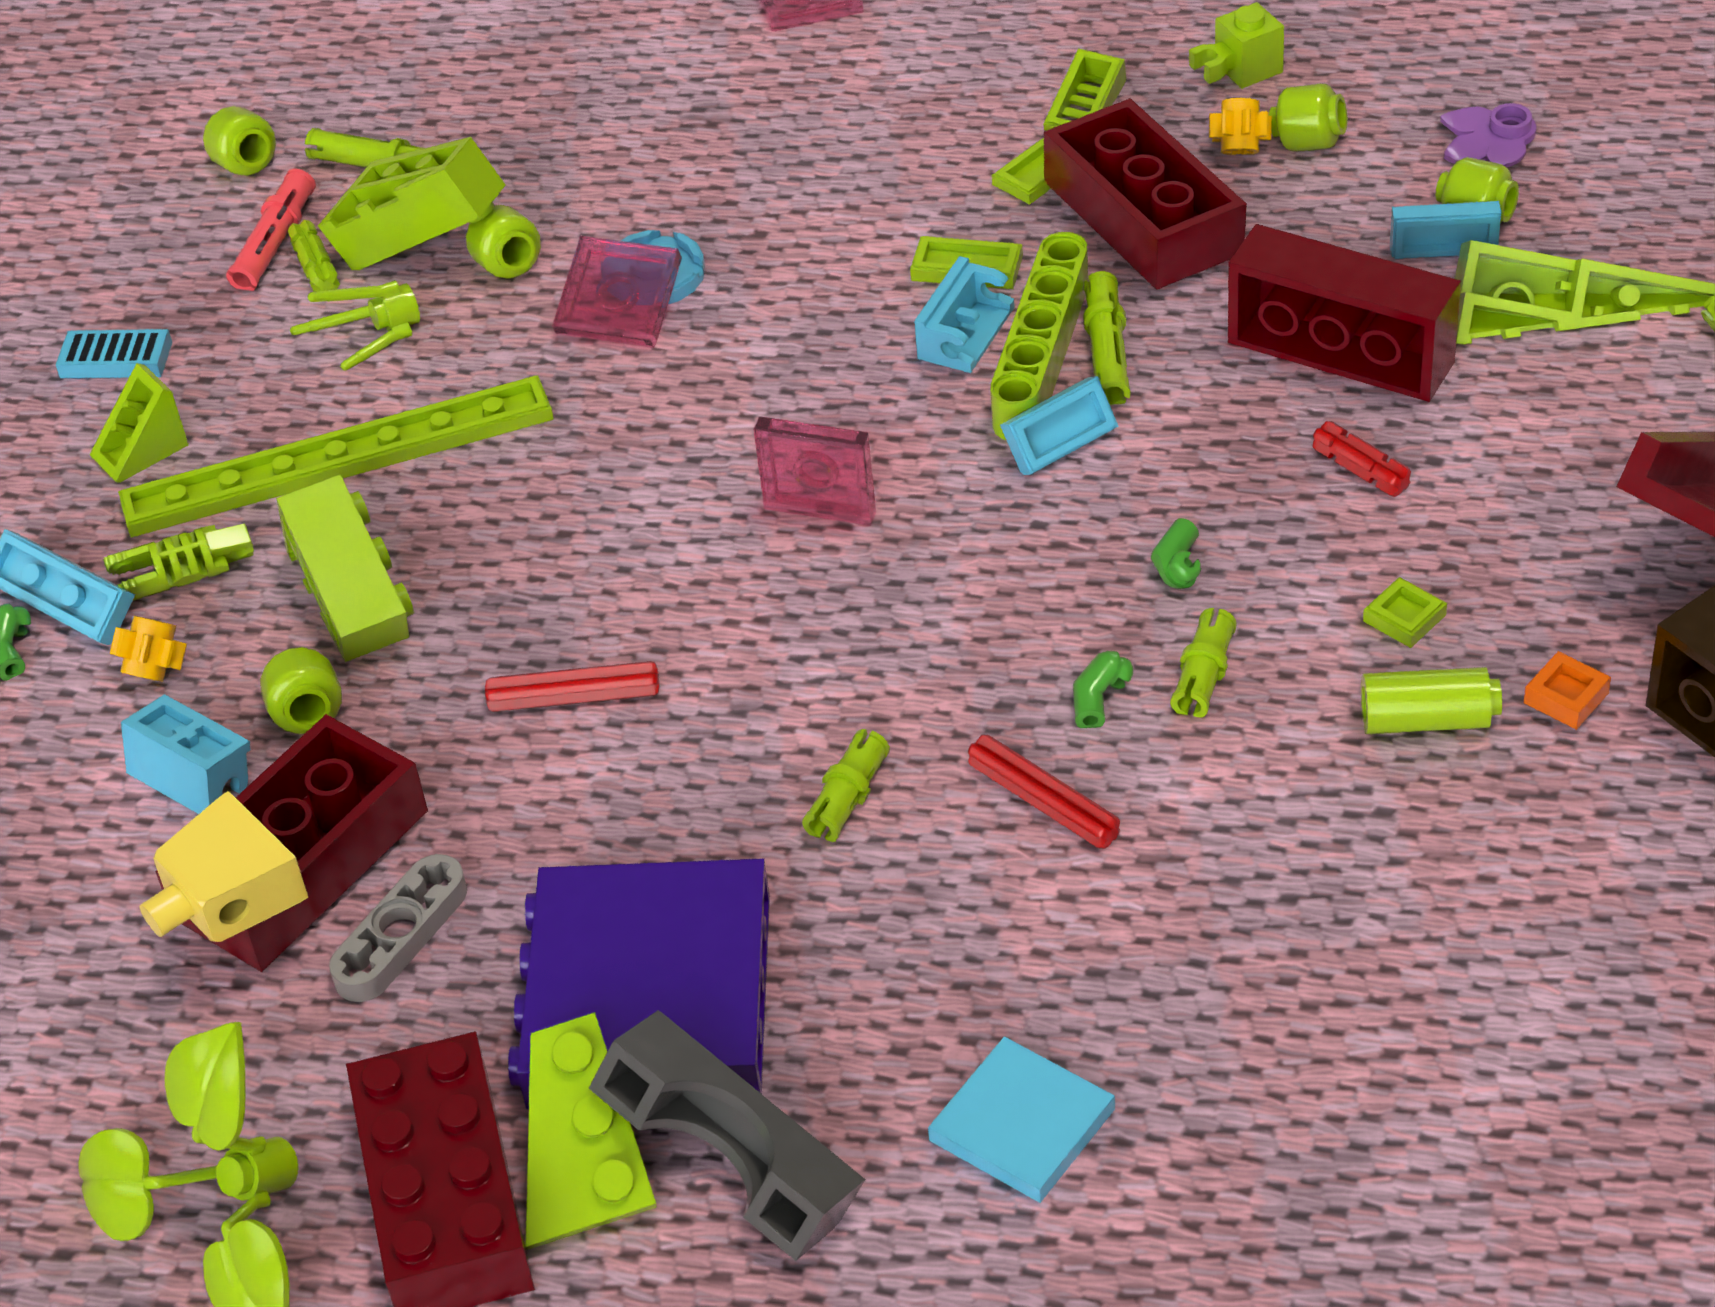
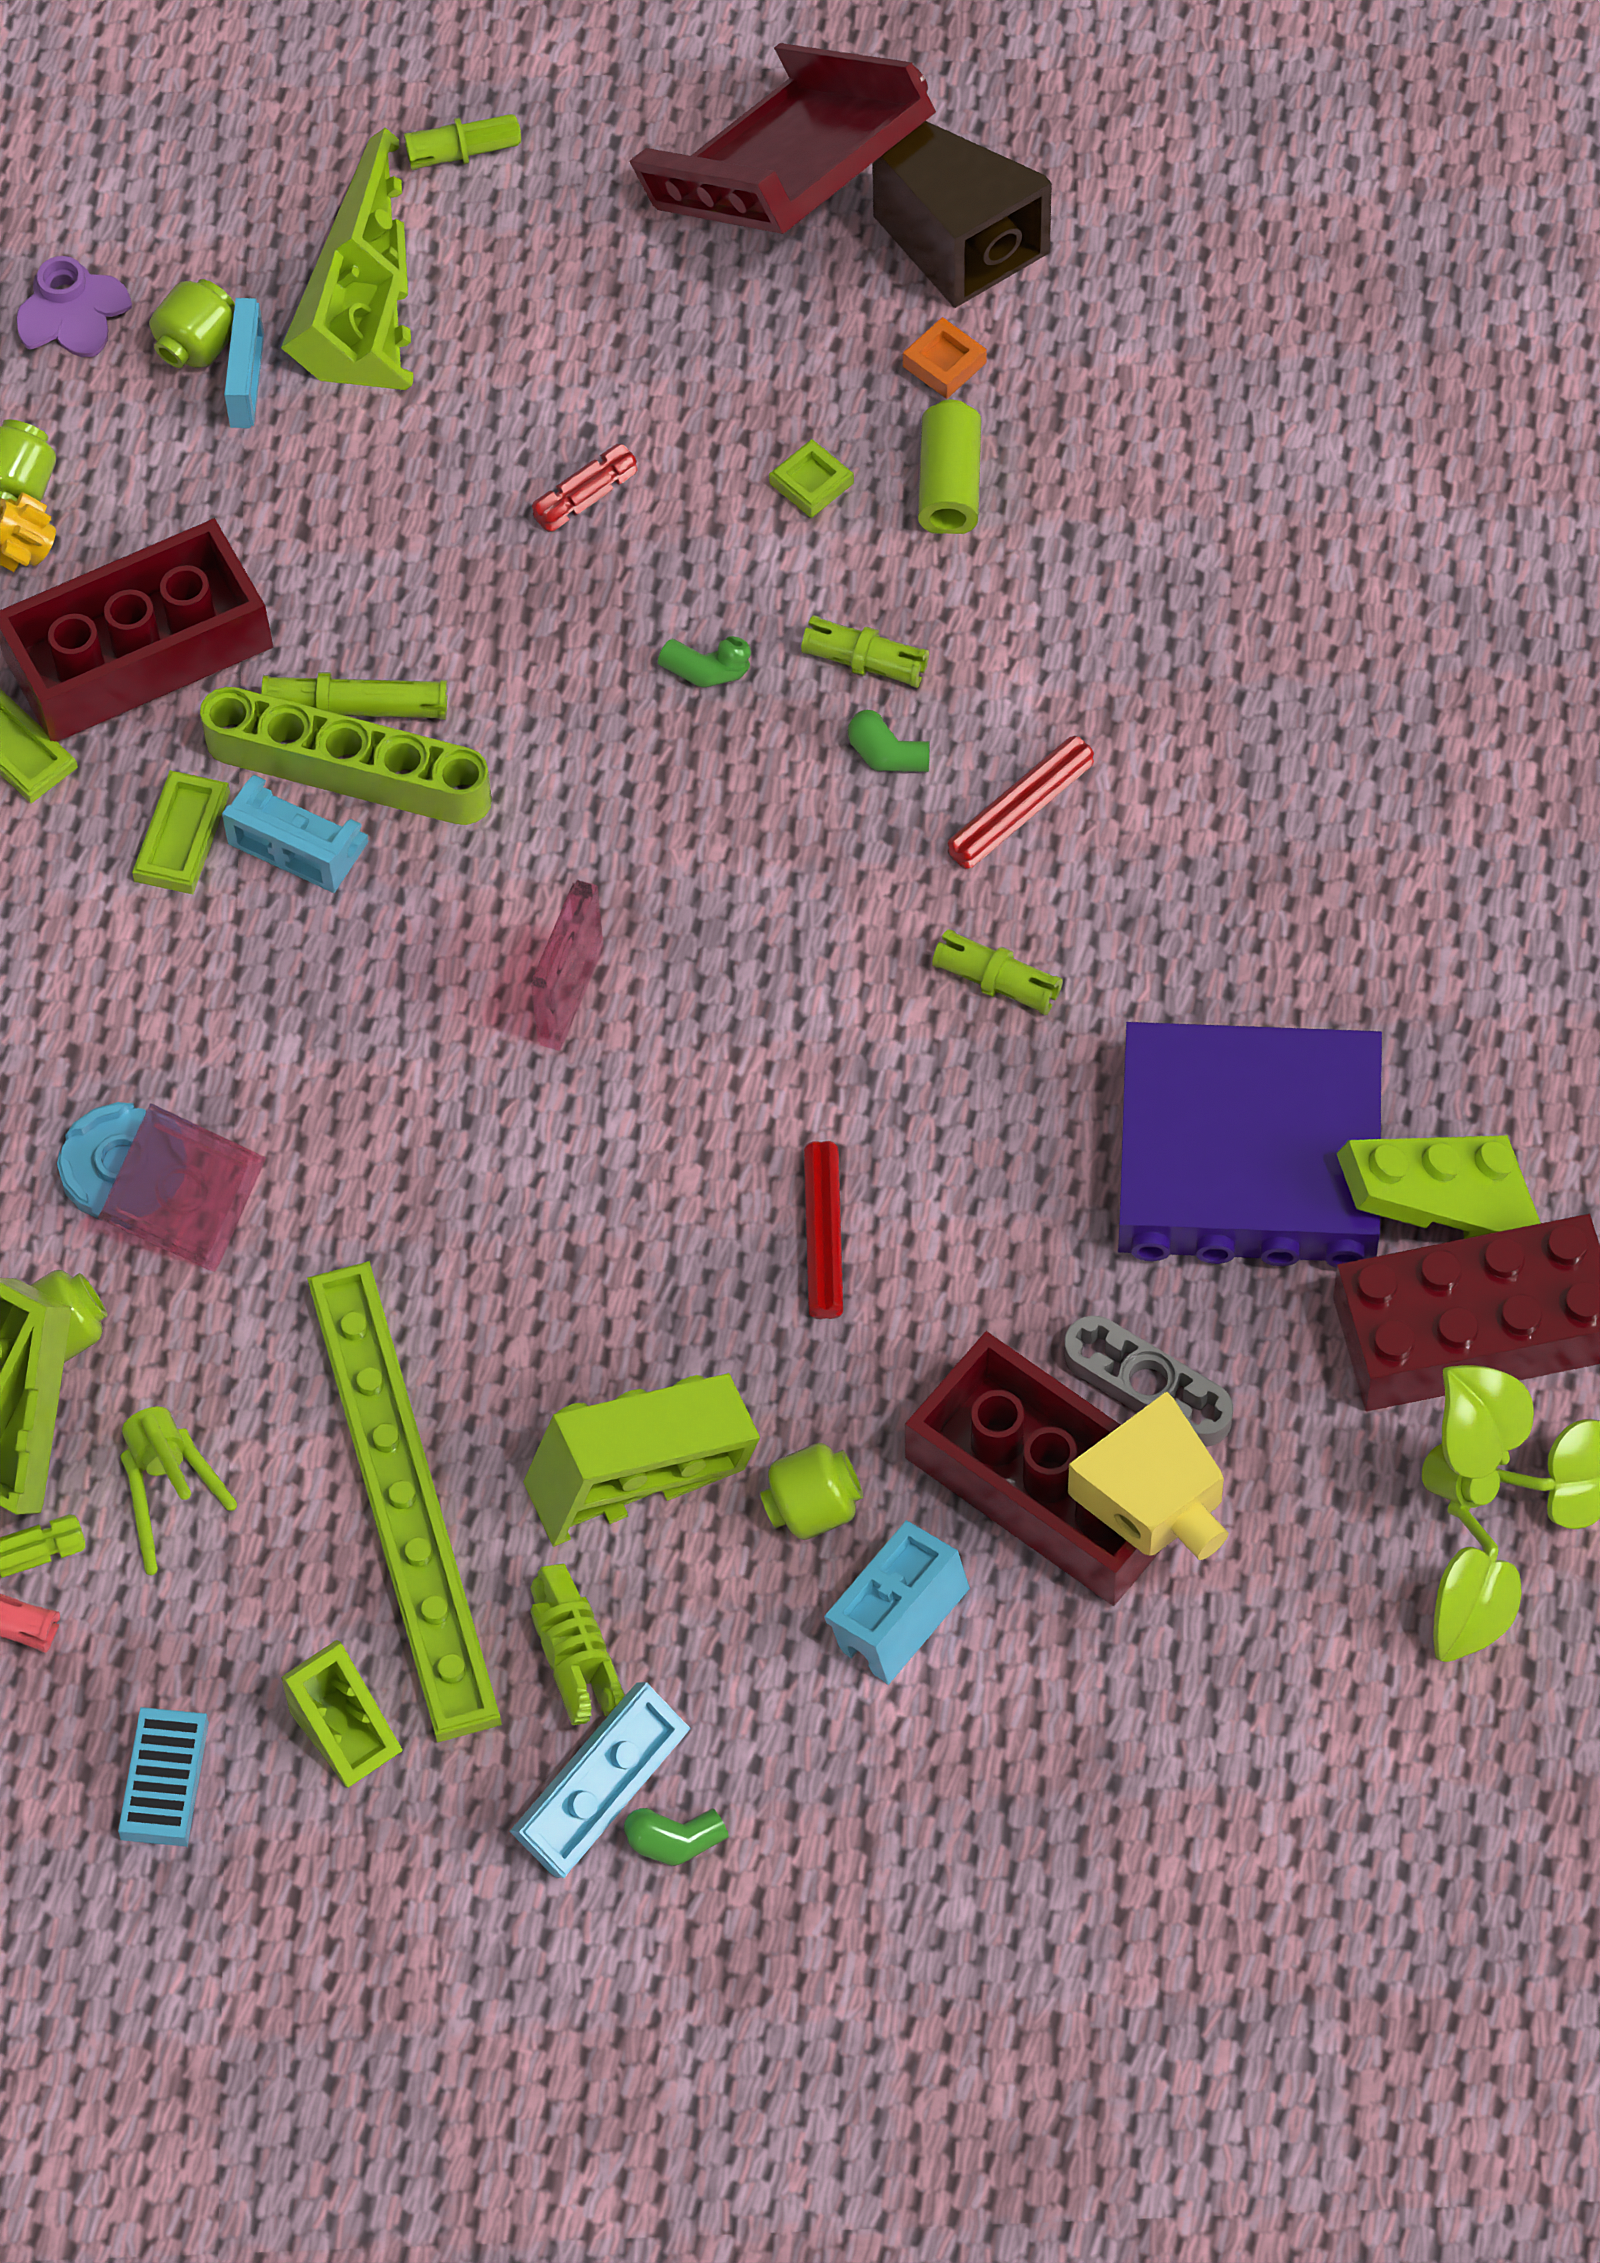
camera: 90 degrees left, 15 degrees up
(148, 648) = (728, 1657): yellow gear -> none
(671, 1081) = (1509, 1007): dark grey arch -> none
(1021, 1119) = (1417, 843): medium azure tile -> none
(1059, 425) = (501, 747): medium azure tile -> none
(1343, 312) = (394, 458): dark red brick -> none

